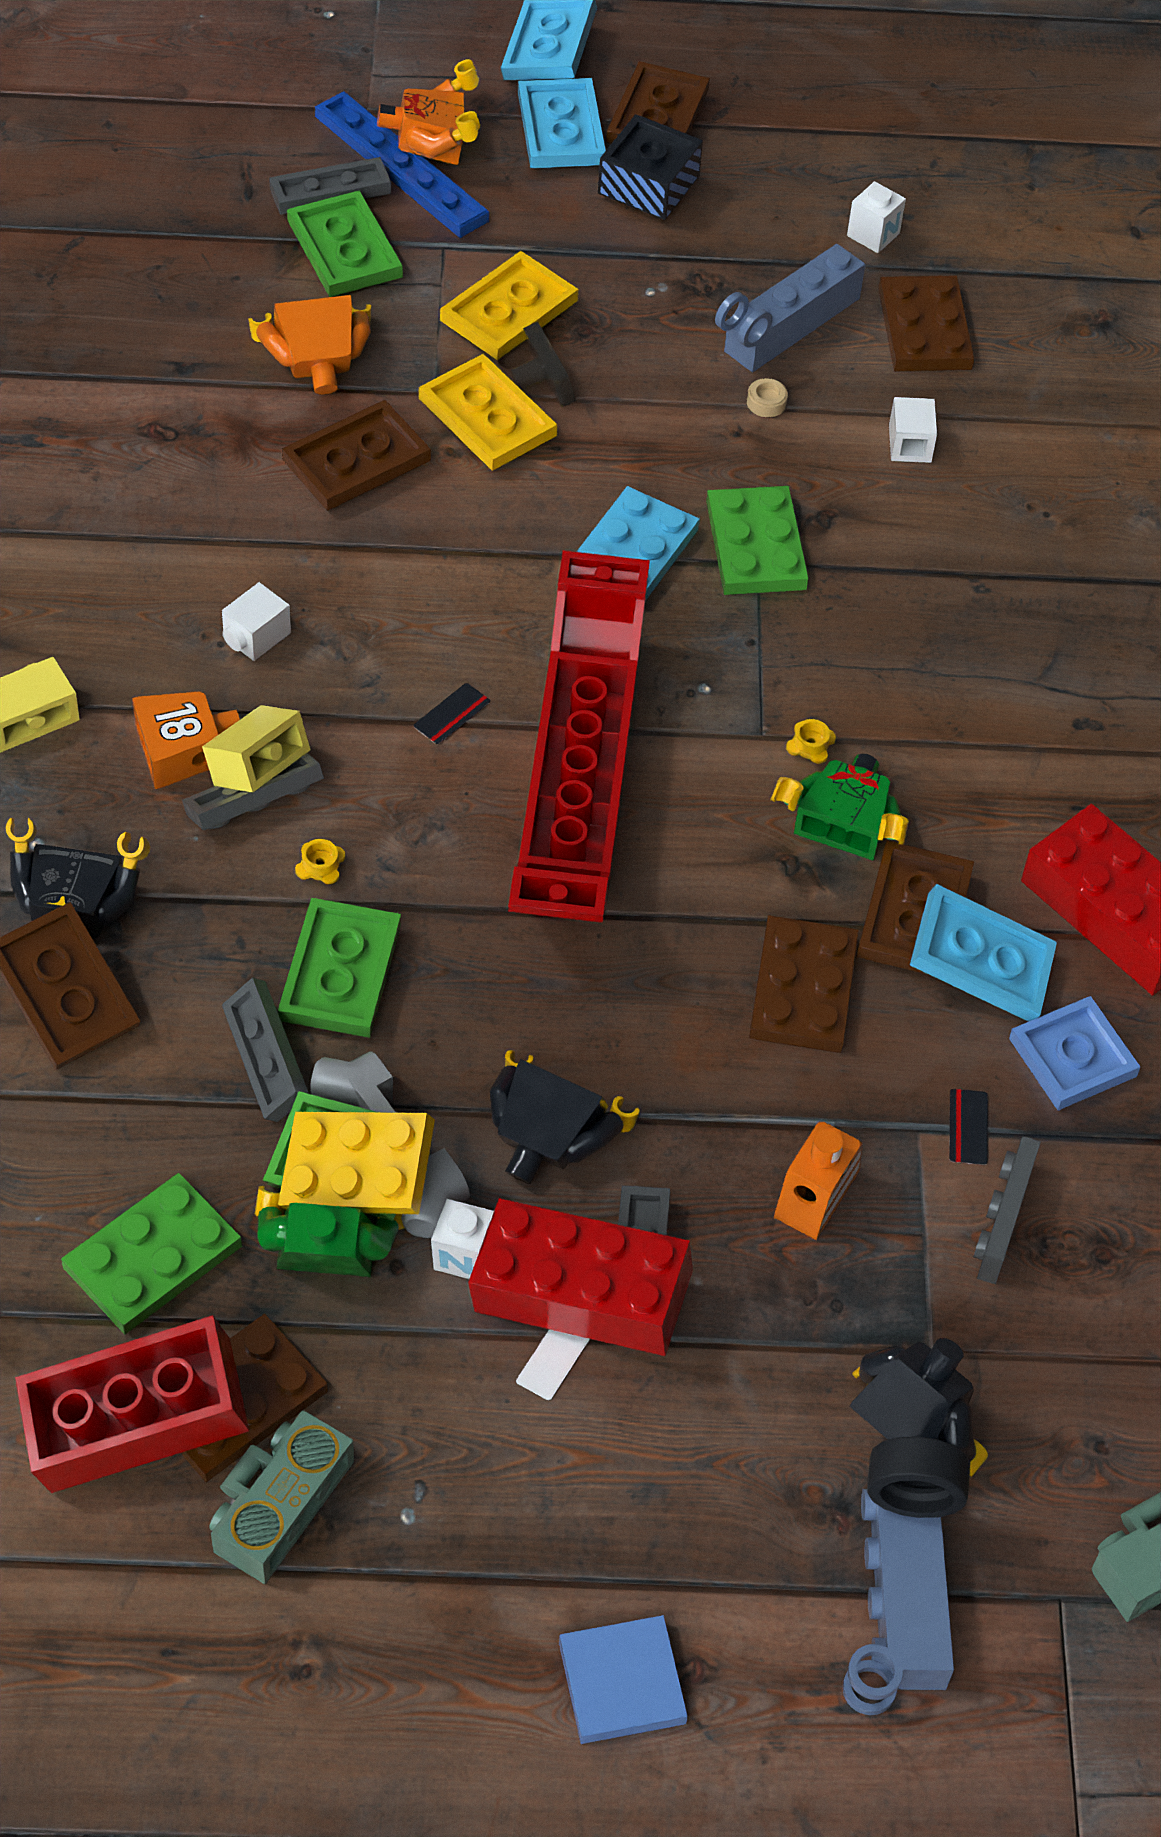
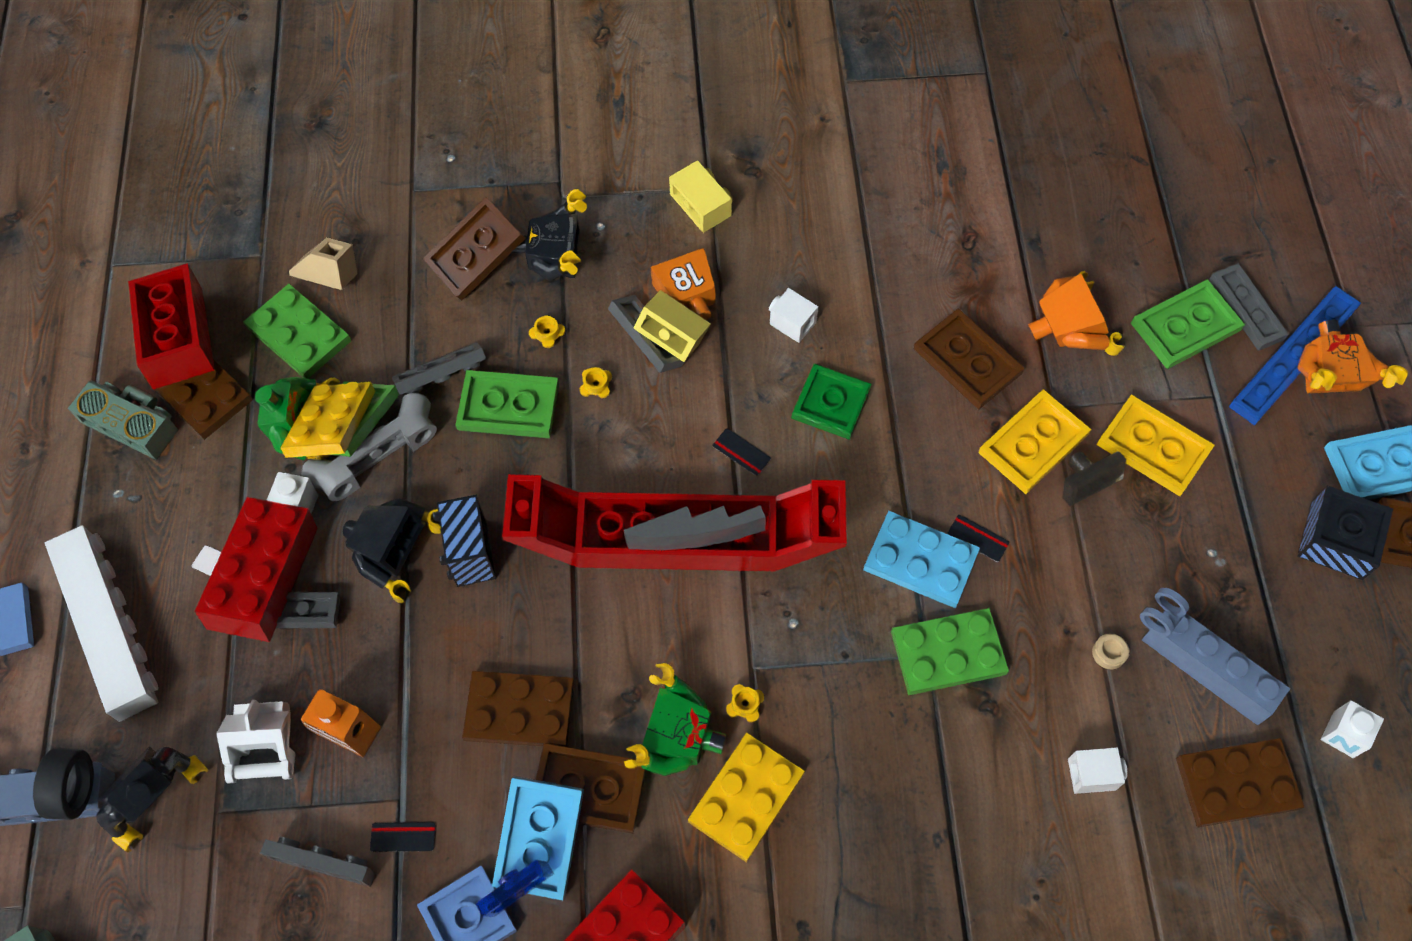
camera: 90 degrees right, 10 degrees up
(41, 1195) = (327, 264): none -> tan slope
(220, 904) = (543, 324): none -> yellow plate
(392, 606) = (831, 401): none -> green tile
(570, 1007) = (465, 541): none -> black container
(599, 725) = (682, 531): none -> dark grey slope
(605, 492) = (989, 542): none -> black sticker
(637, 1505) = (102, 624): none -> white brick
(826, 1279) = (256, 727): none -> white piece
(929, 755) = (746, 797): none -> yellow plate
(1051, 972) = (513, 887): none -> clear blue plate

